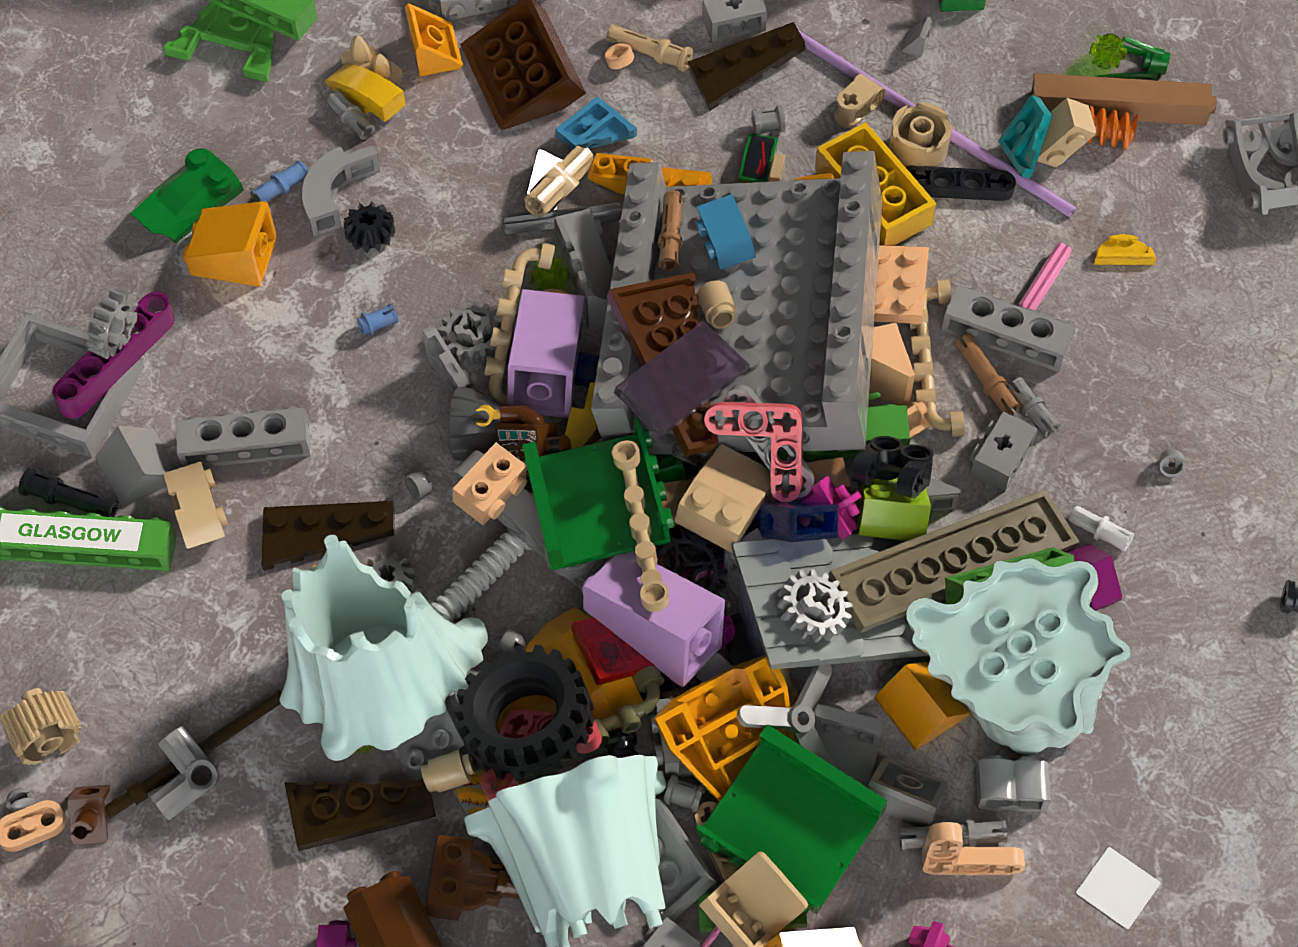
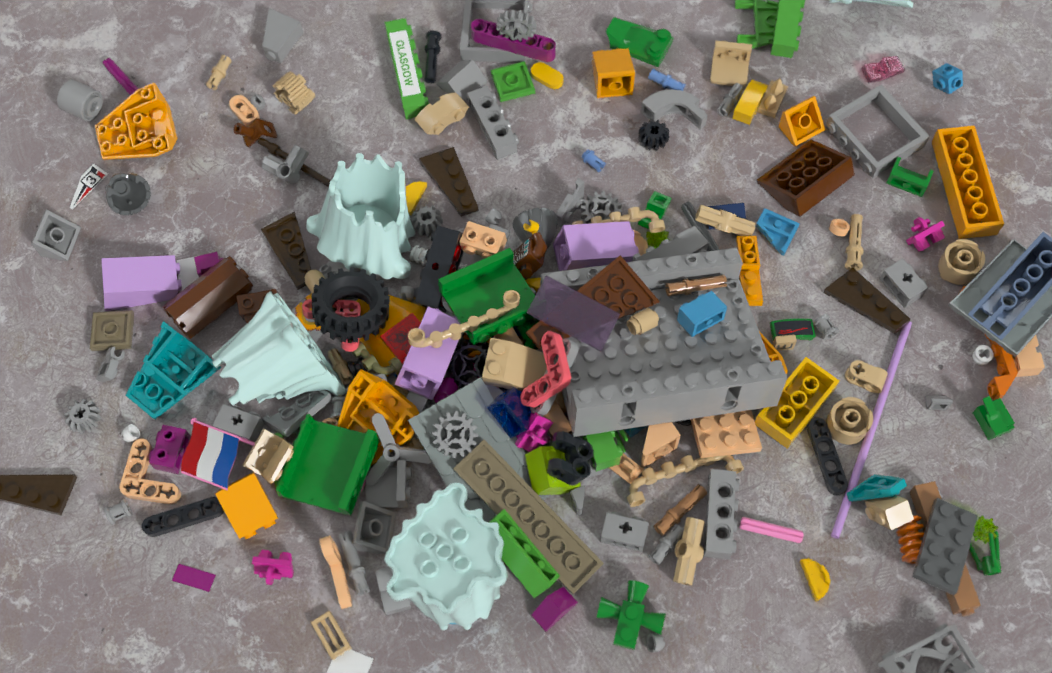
camera: 75 degrees right, 5 degrees up
(173, 391) = (512, 81): none -> bright green tile
(187, 340) = (547, 75): none -> yellow tile
(289, 95) = (730, 63): none -> tan bracket
(492, 262) = (657, 203): none -> green slope
(505, 567) = (441, 260): none -> black brick
(1031, 907) = (340, 651): none -> tan tile
(1072, 390) = (689, 551): none -> tan piece
(1101, 528) = (589, 606): white axle -> none
(1128, 89) = (945, 546): none -> dark grey plate
(1132, 476) = (631, 615): none -> green brick

